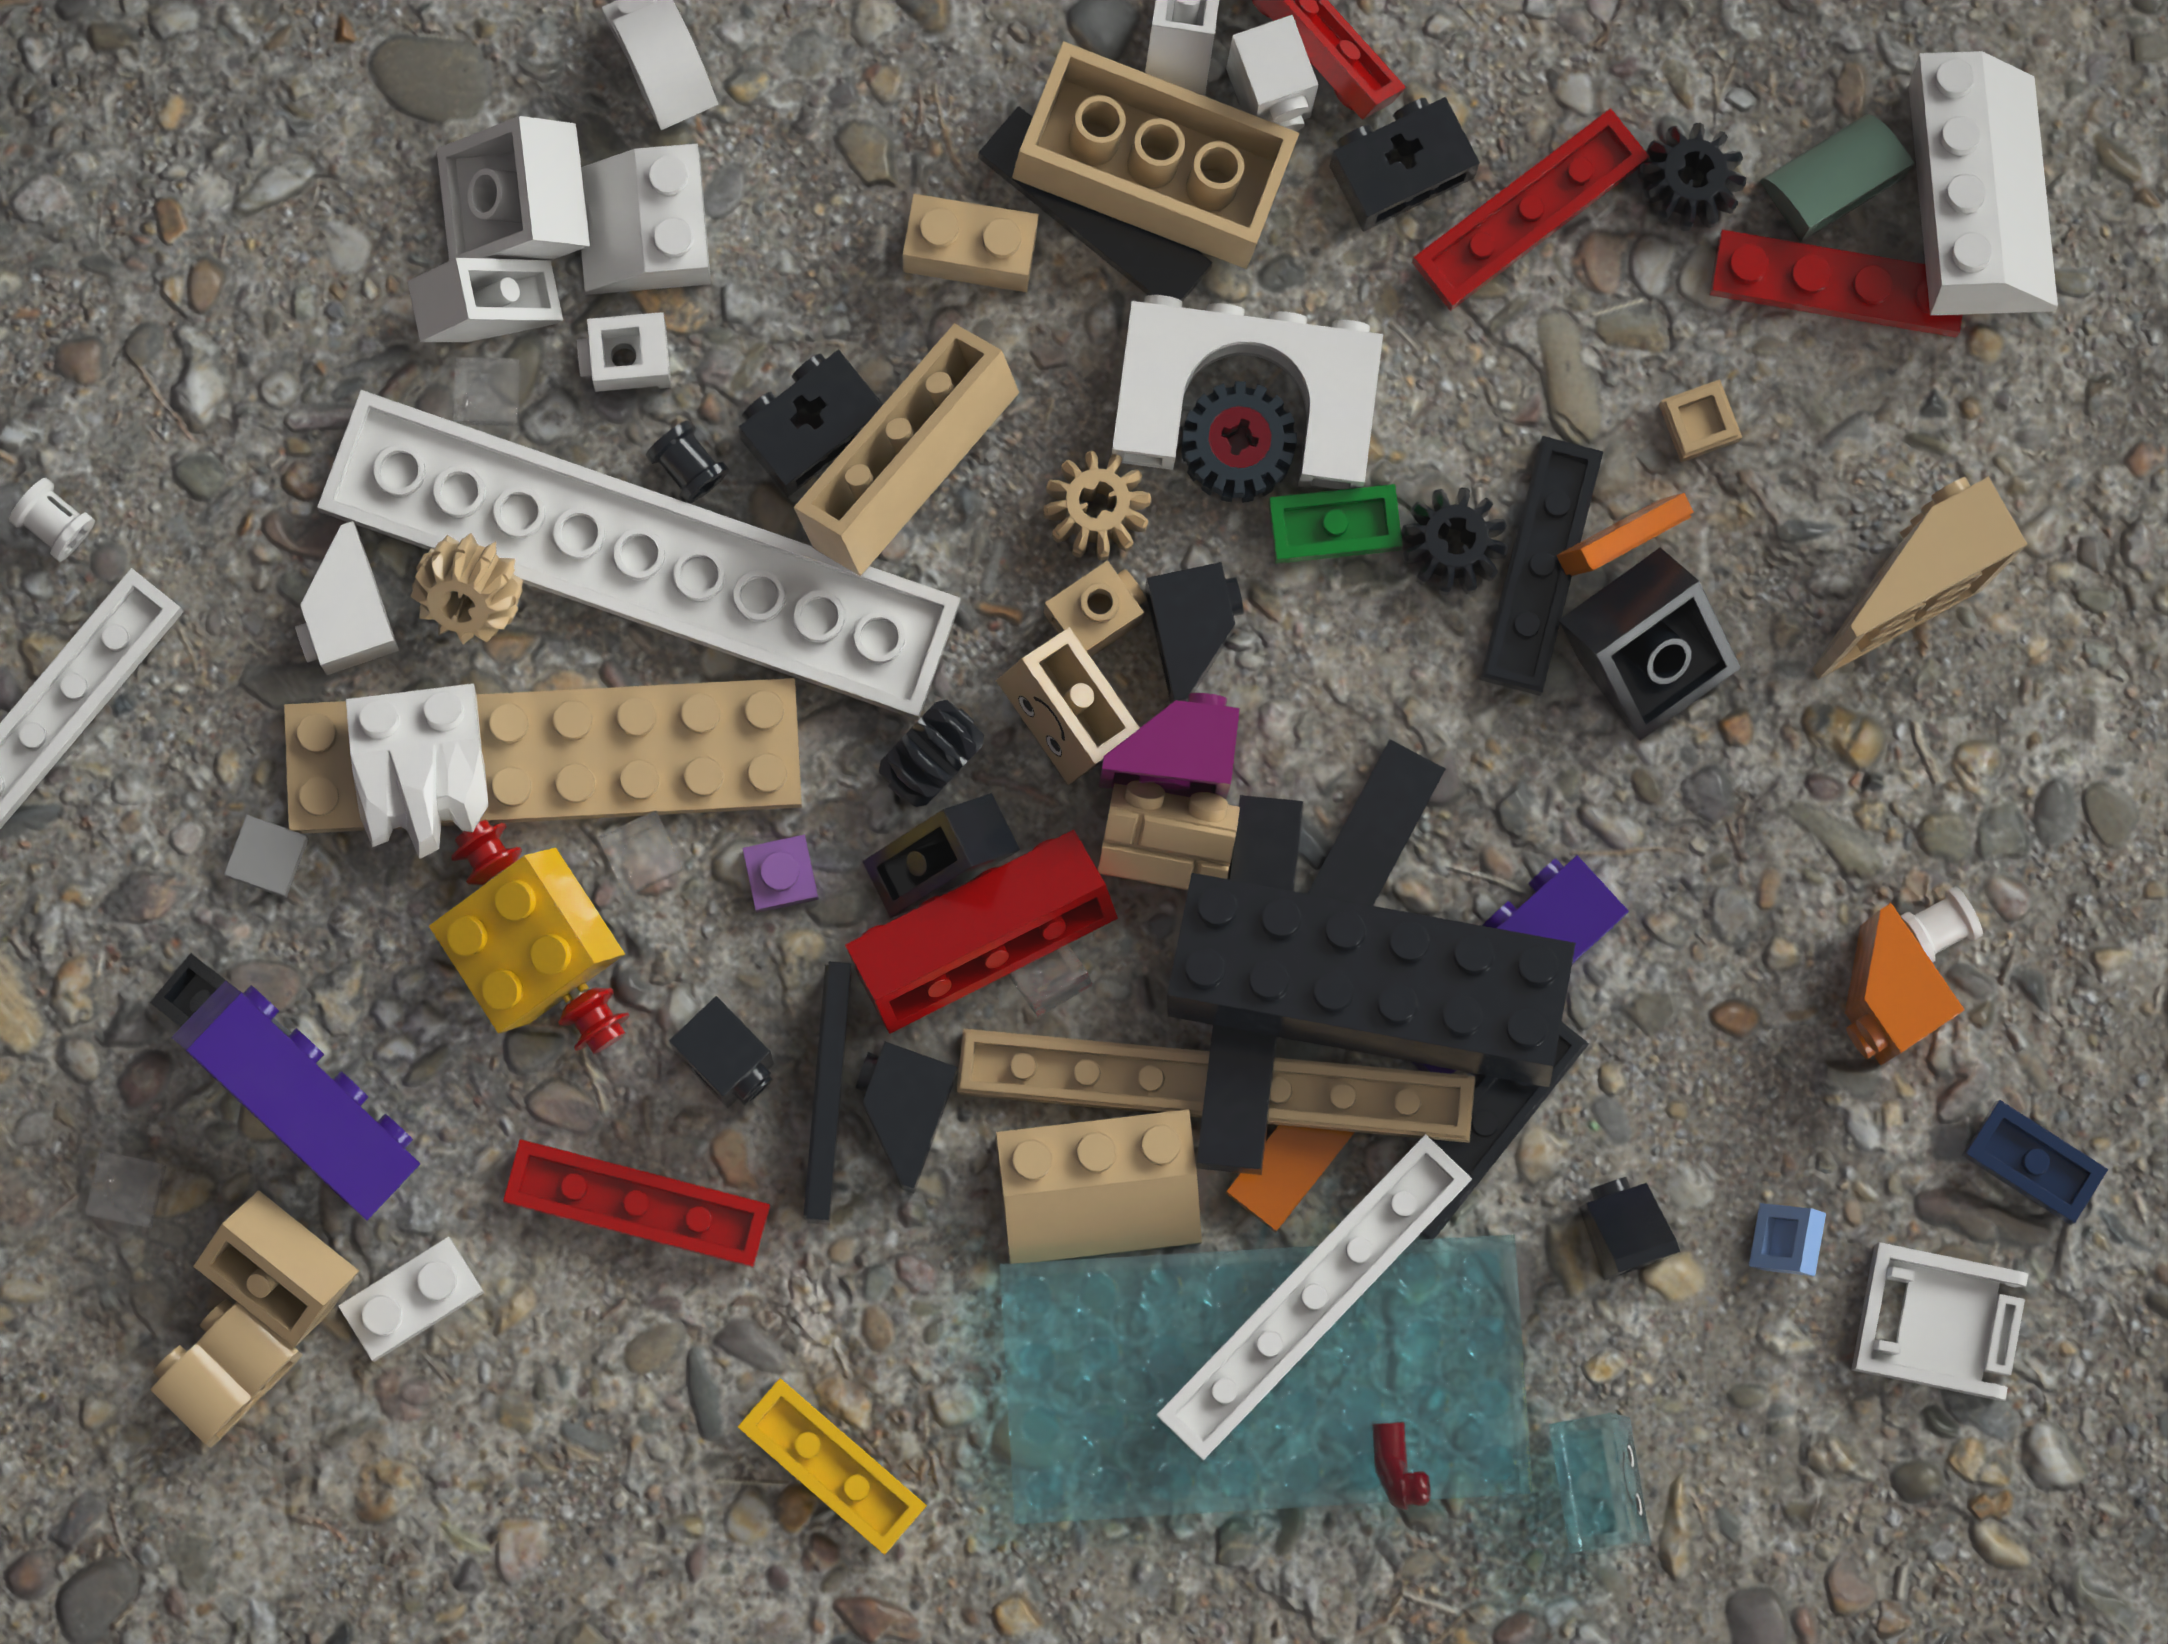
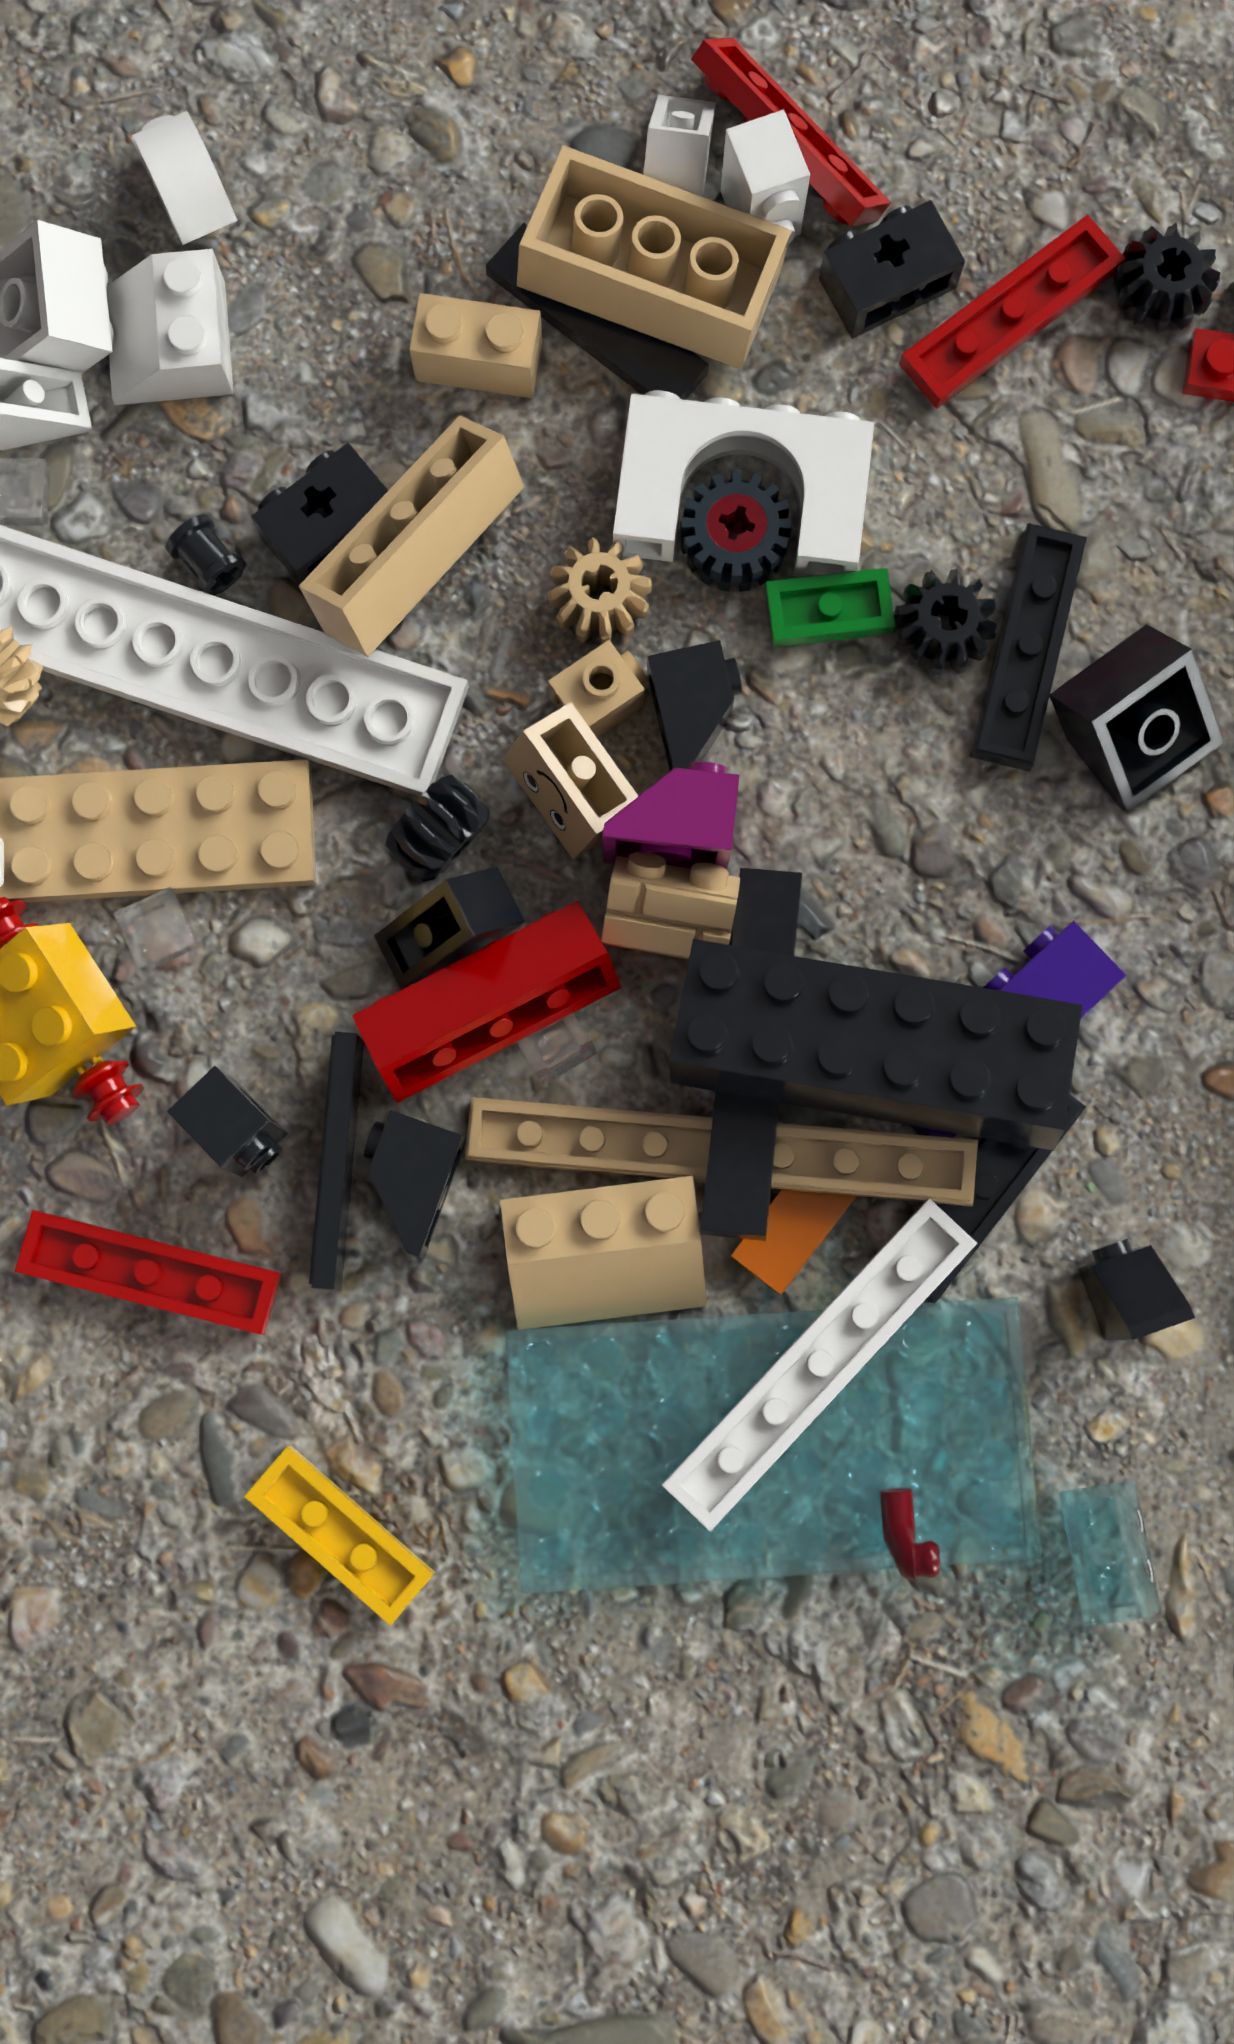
camera: 10 degrees right, 0 degrees up
(640, 333) = (146, 434): white brick -> none
(780, 873) = (293, 948): medium lavender plate -> none
(1378, 826) = (876, 894): black tile -> none
(1625, 535) = (1112, 612): orange tile -> none
(1700, 420) = (1178, 508): tan tile -> none

